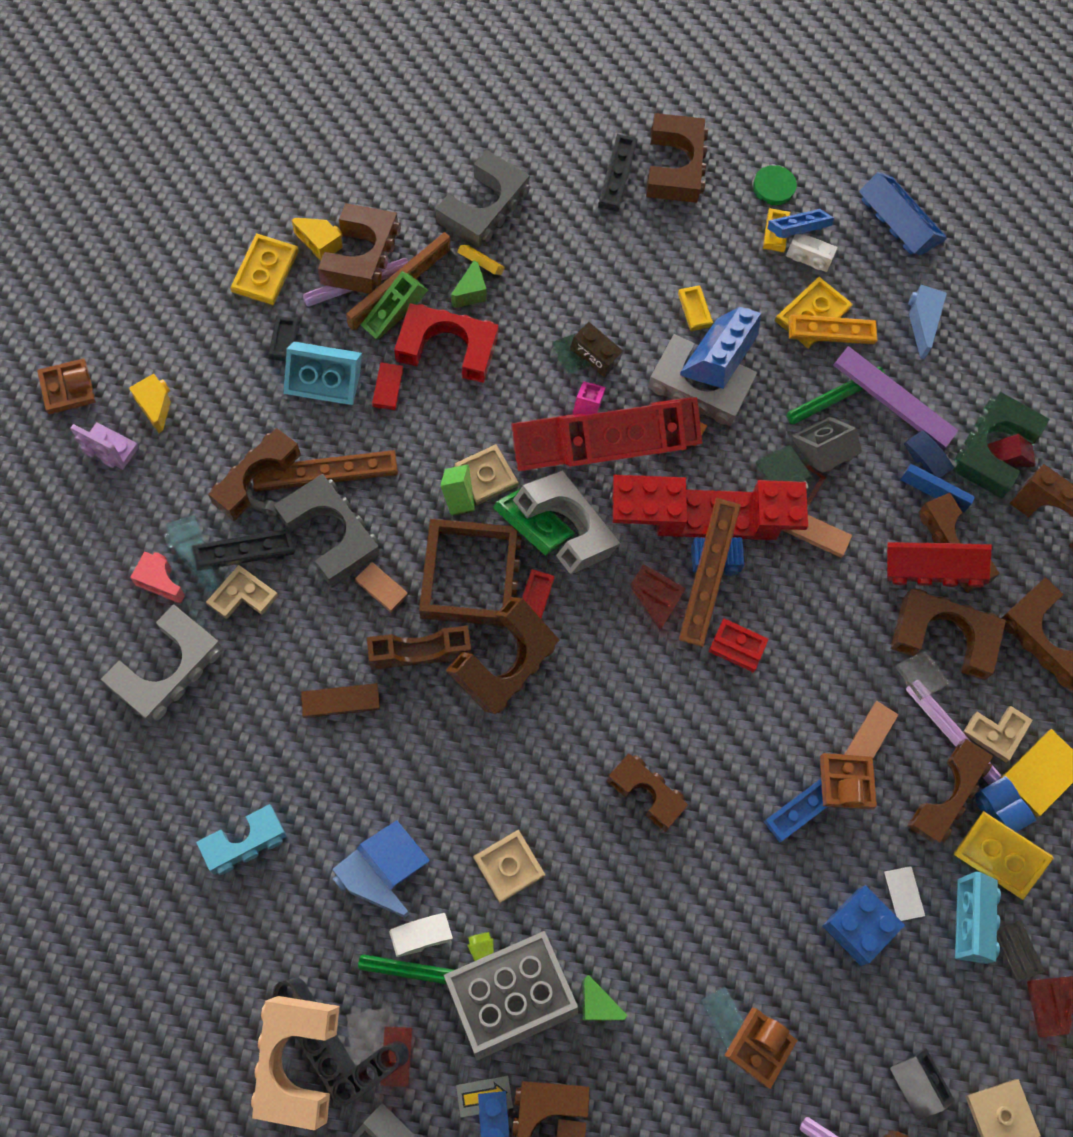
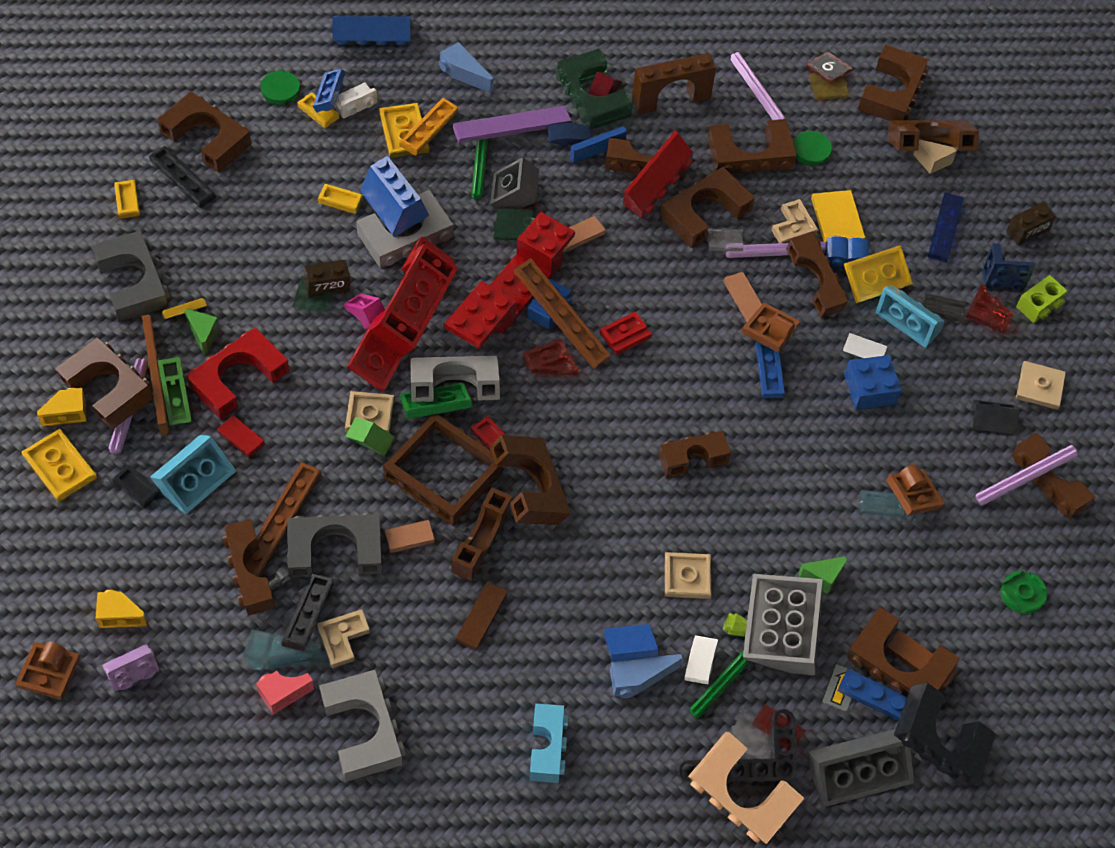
camera: 55 degrees left, 10 degrees down
(561, 147) = (127, 199): none -> yellow tile

